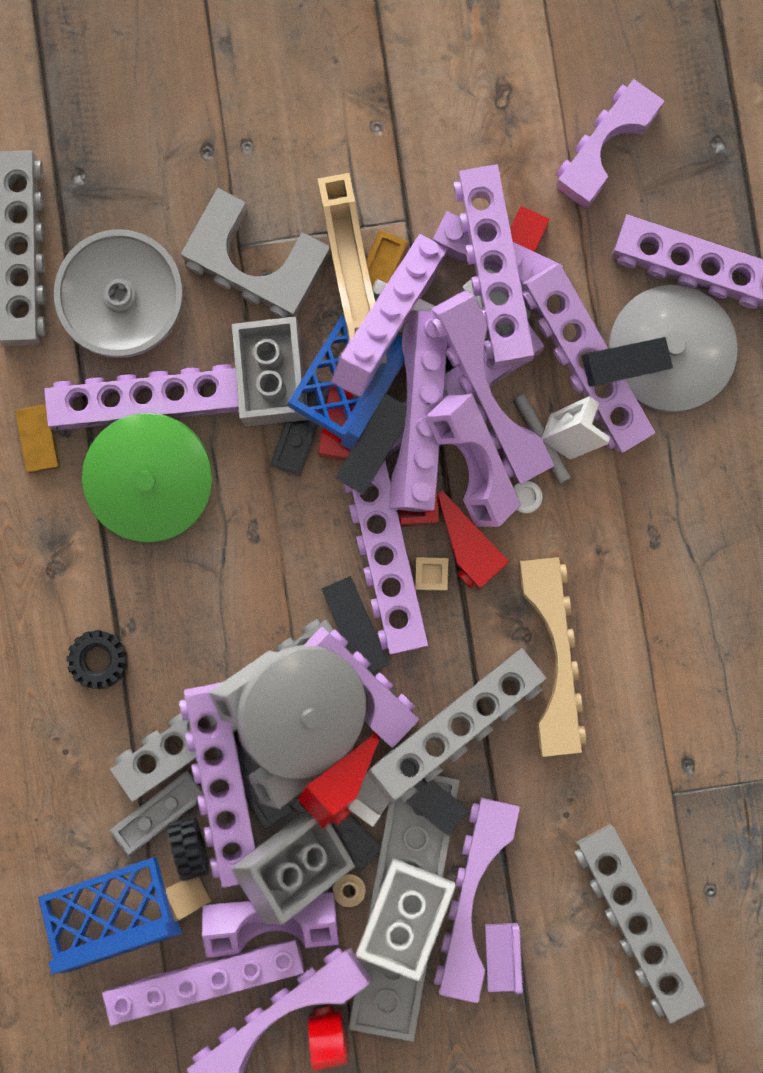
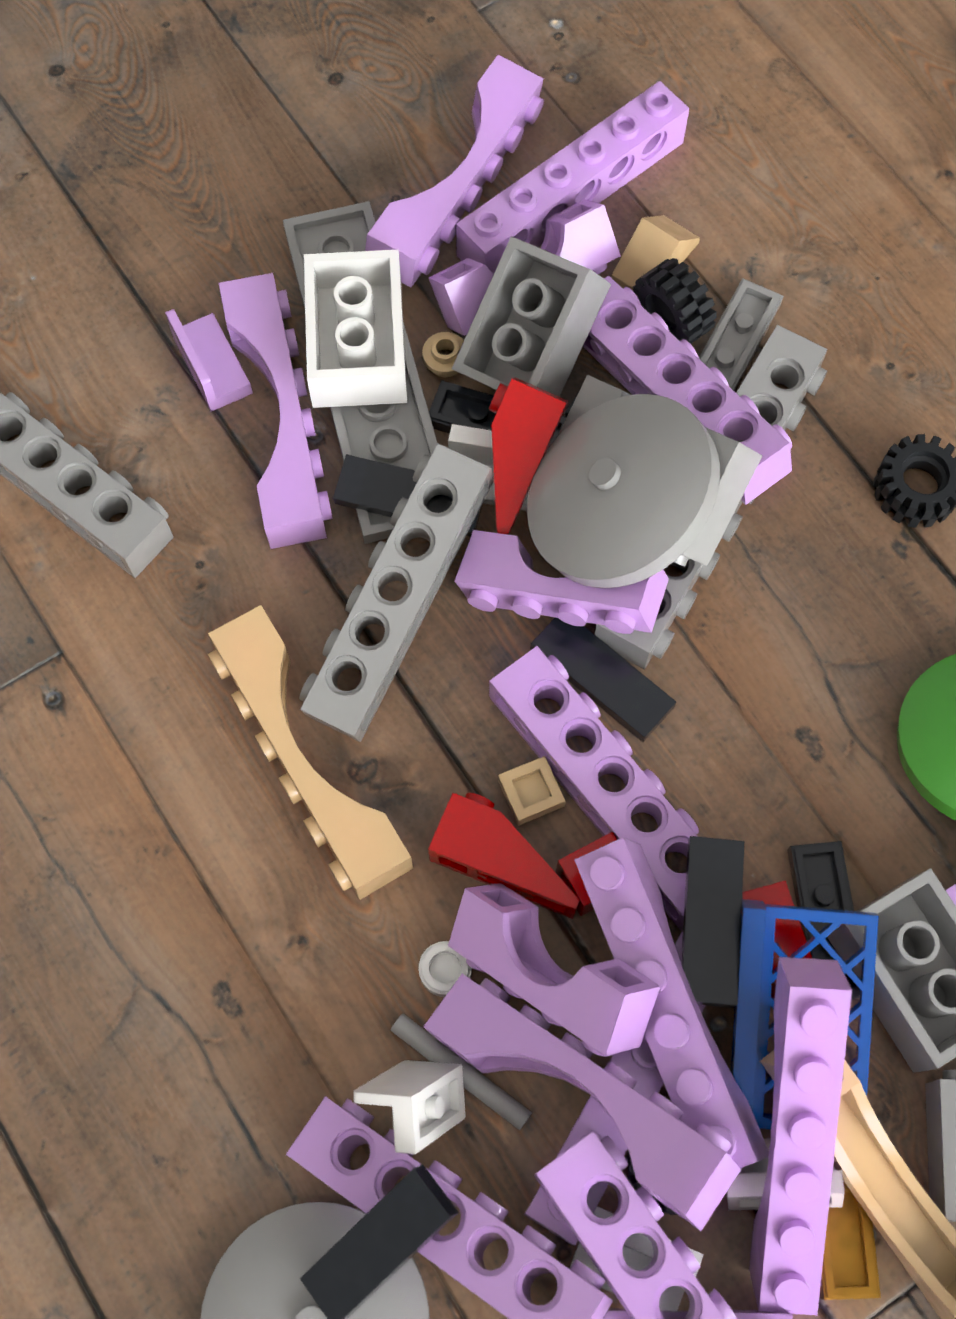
camera: 150 degrees right, 15 degrees down
(115, 944) = (731, 150): blue fence -> none
(327, 1037) = (384, 152): slope -> none

